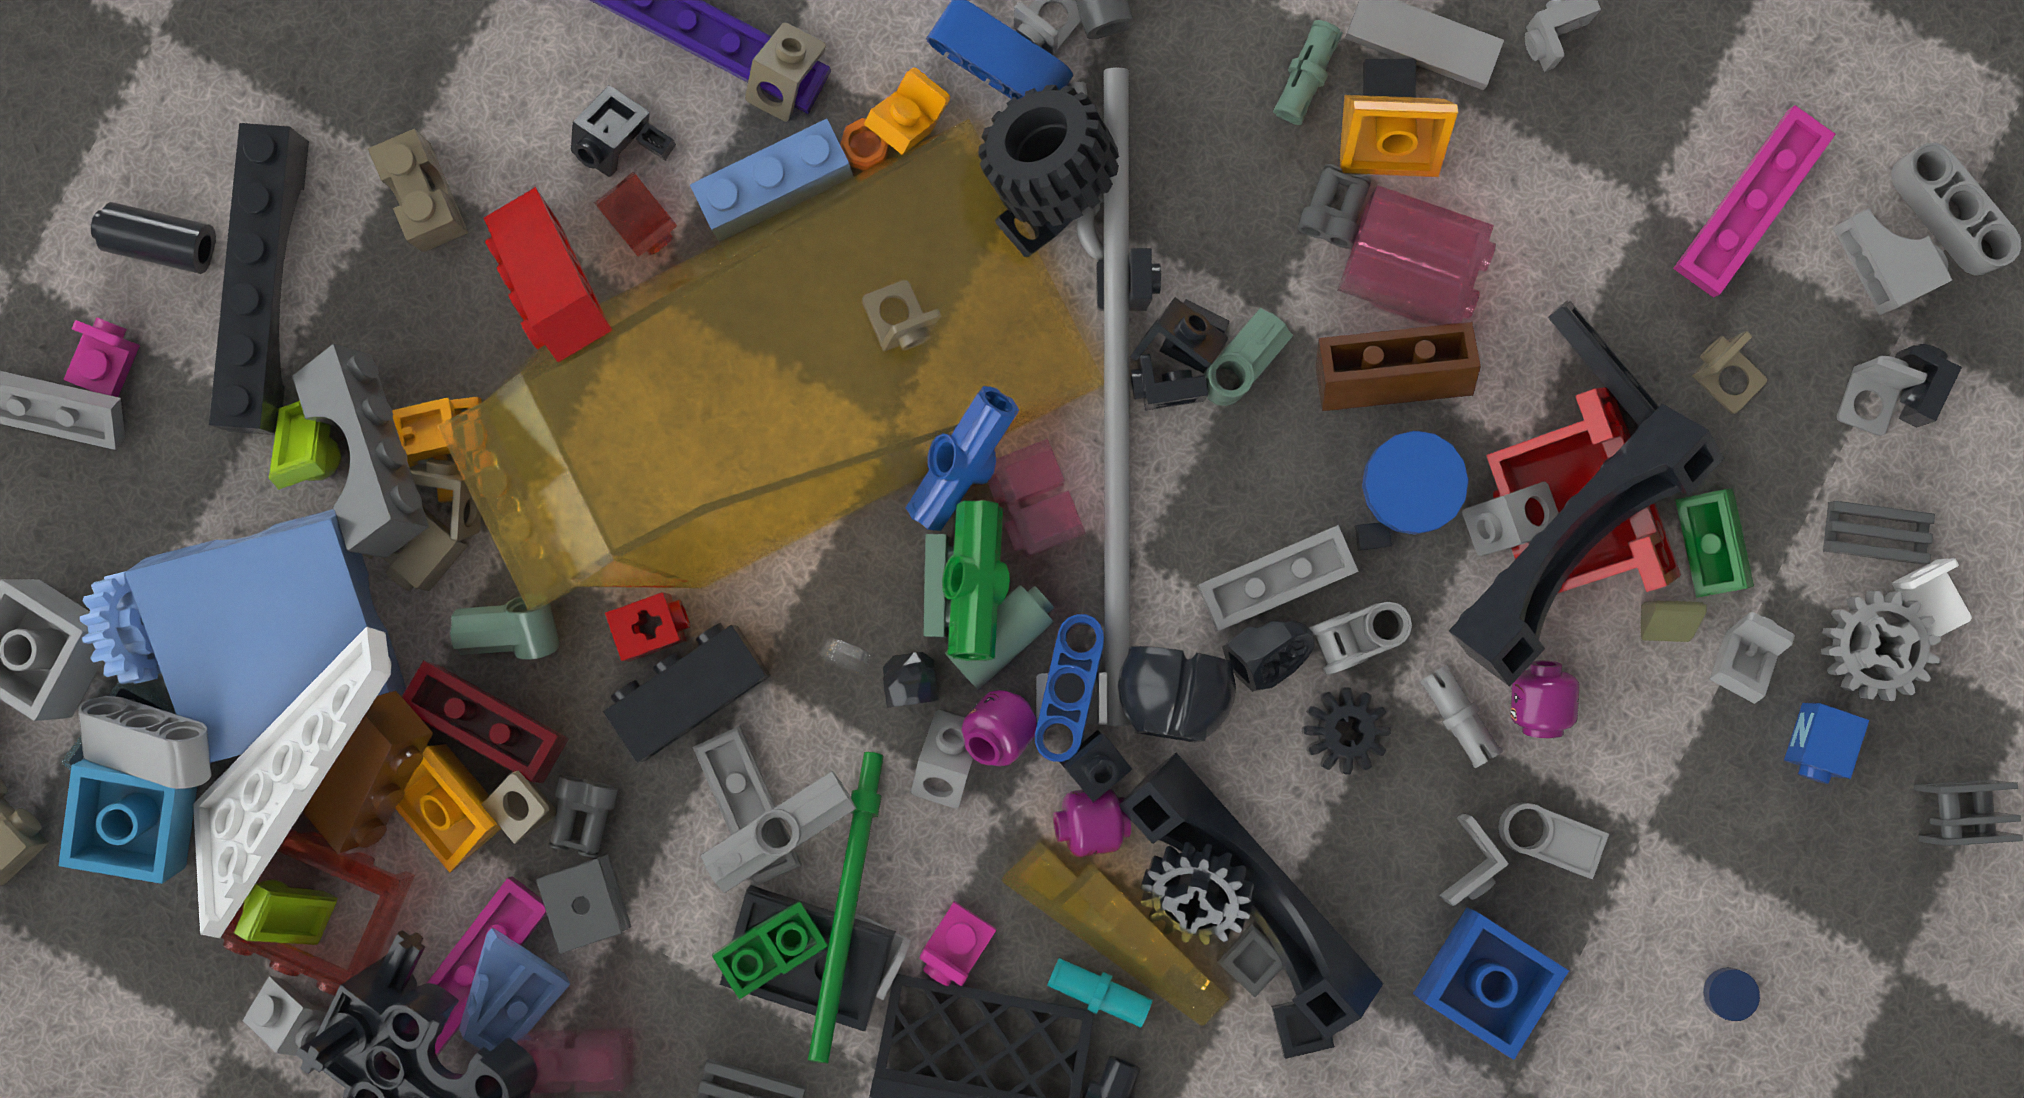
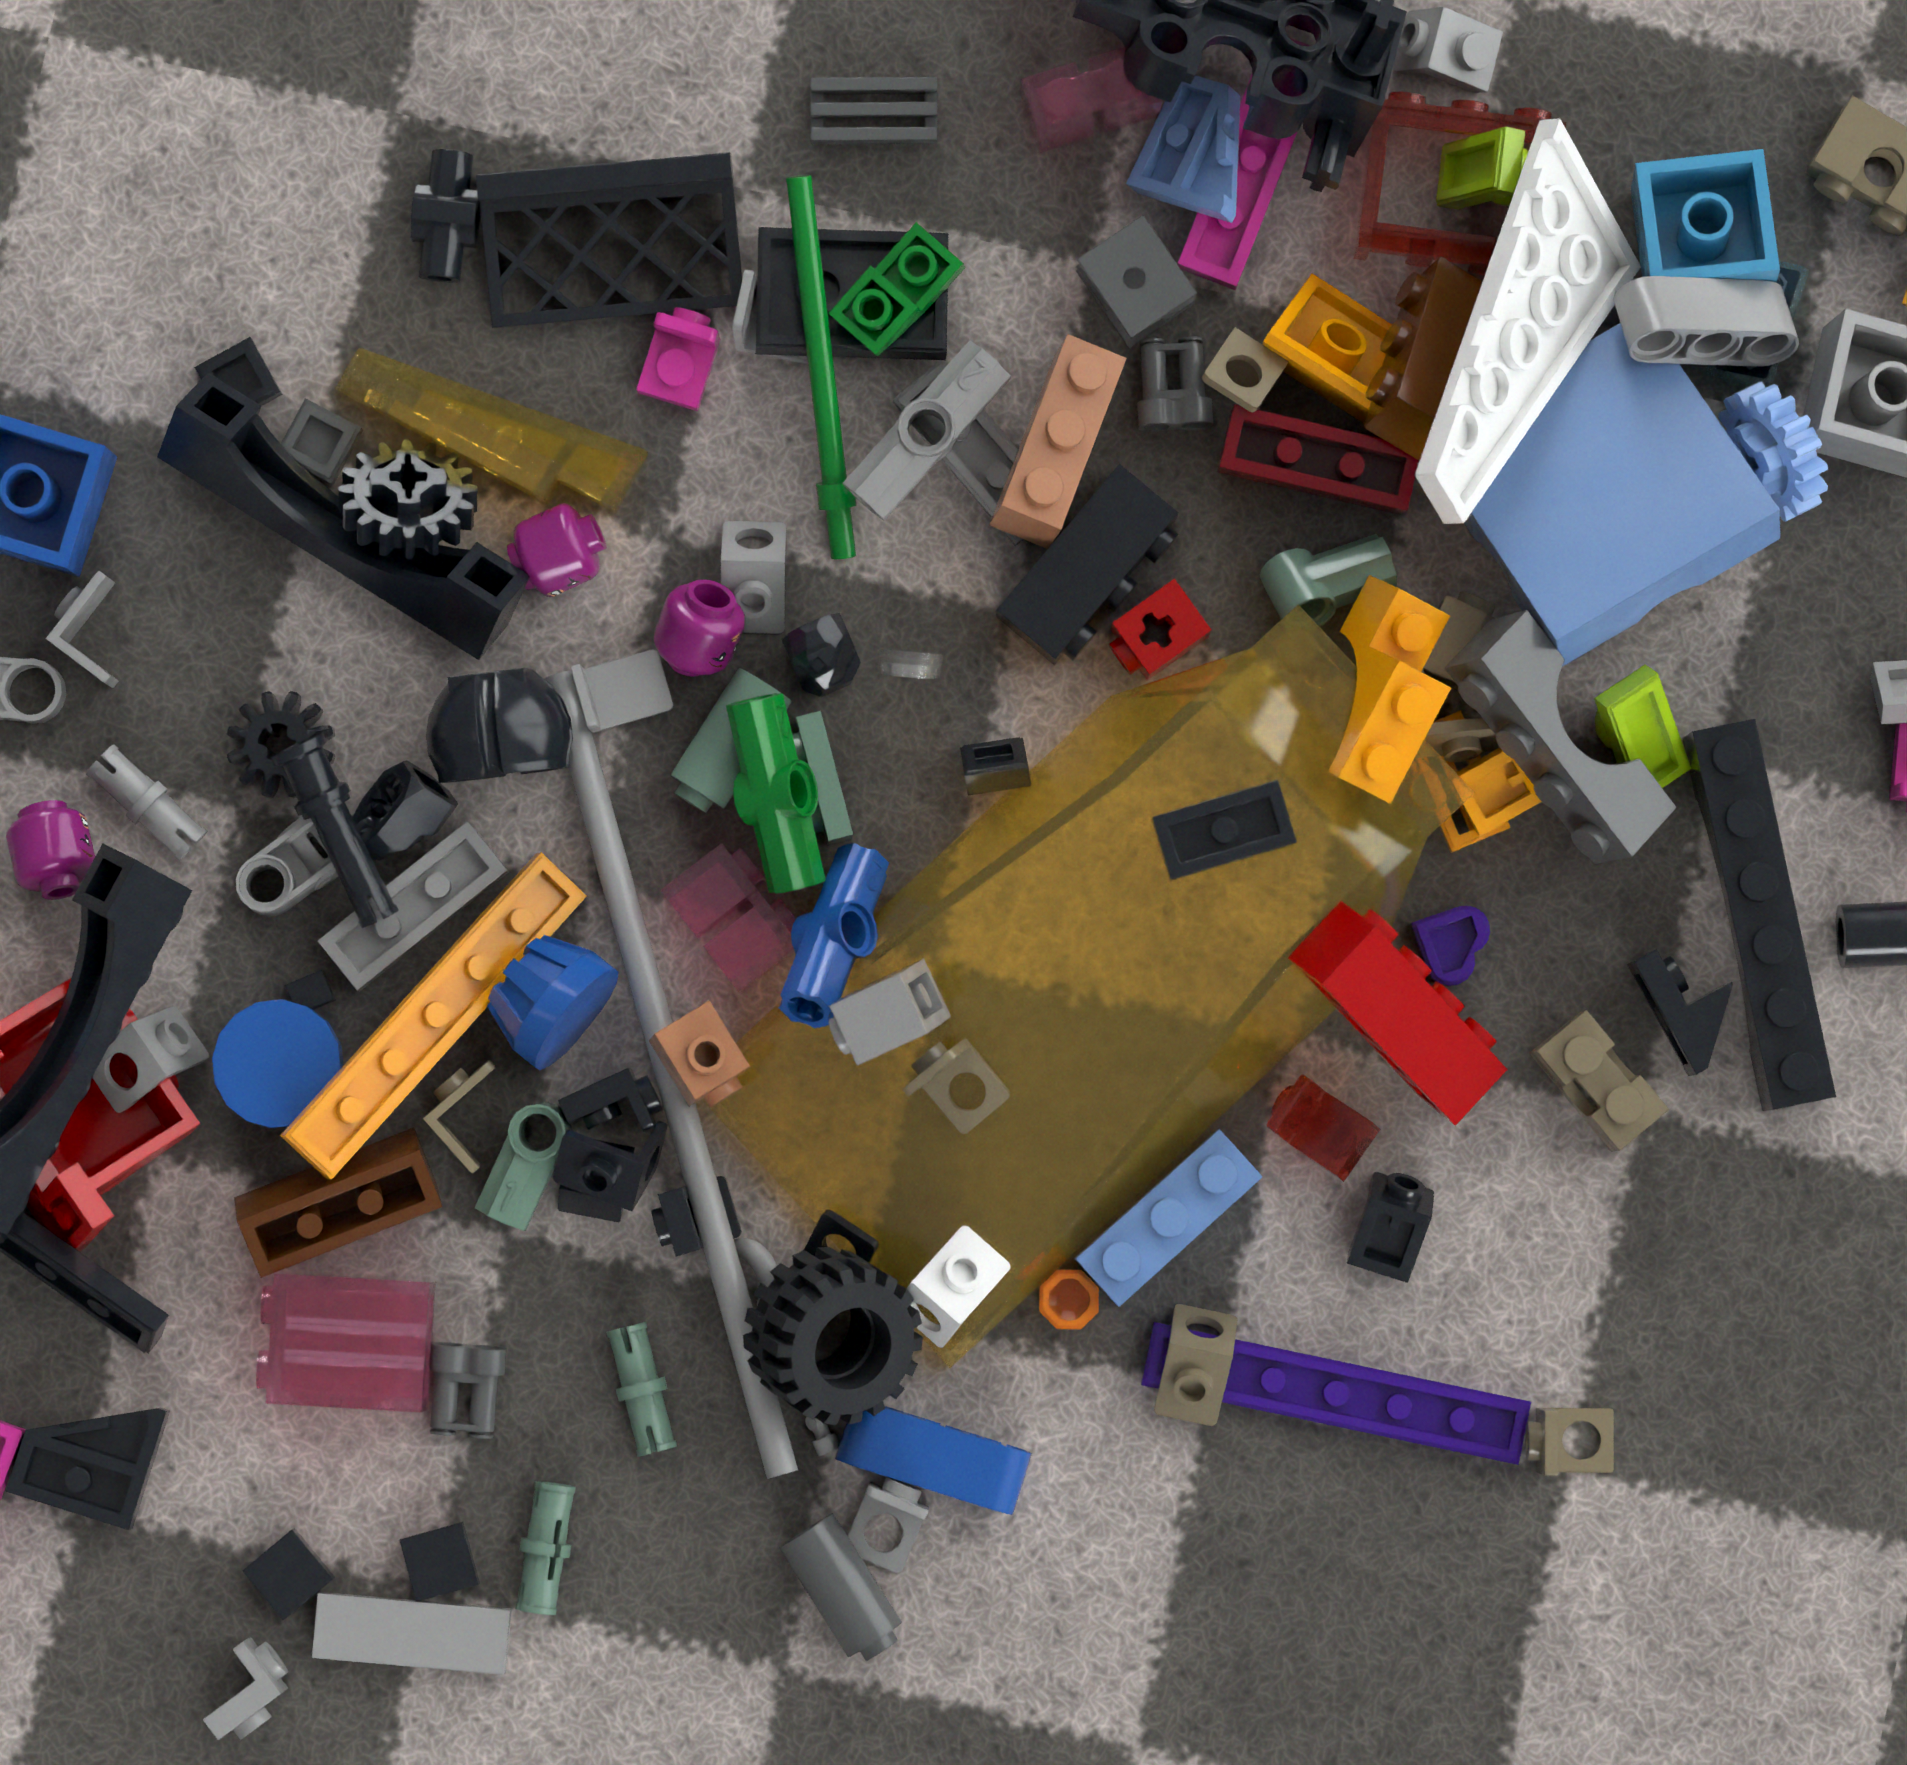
camera: 165 degrees right, 0 degrees up
(339, 215) = (1690, 1026): none -> black slope
(472, 509) = (1392, 696): none -> light orange arch
(498, 331) = (1449, 942): none -> dark purple tile
(630, 440) = (1223, 830): none -> black plate
(655, 141) = (1329, 1230): black piece -> none
(679, 794) = (1057, 441): none -> nougat brick
(803, 558) = (995, 766): none -> black tile
(908, 112) = (1026, 1351): light orange bracket -> none
(935, 377) = (888, 1013): none -> light grey brick
(943, 171) = (956, 1283): none -> white bracket
(1066, 662) = (634, 667): blue beam -> none
(1089, 395) = (701, 1056): none -> nougat brick
(1096, 765) = (571, 616): black bracket -> none
(1100, 992) = (491, 351): teal pin -> none
(1193, 475) = (550, 998): none -> blue piece
(1203, 168) = (641, 1389): none -> sand green pin
(1286, 485) = (430, 1017): none -> light orange tile
(1288, 425) = (448, 1094): none -> dark tan bracket
(1326, 671) = (323, 801): none -> black pin
(1395, 135) = (416, 1498): light orange slope -> none
(1504, 107) = (288, 1574): none -> black tile
(1633, 226) = (91, 1465): none -> black wing

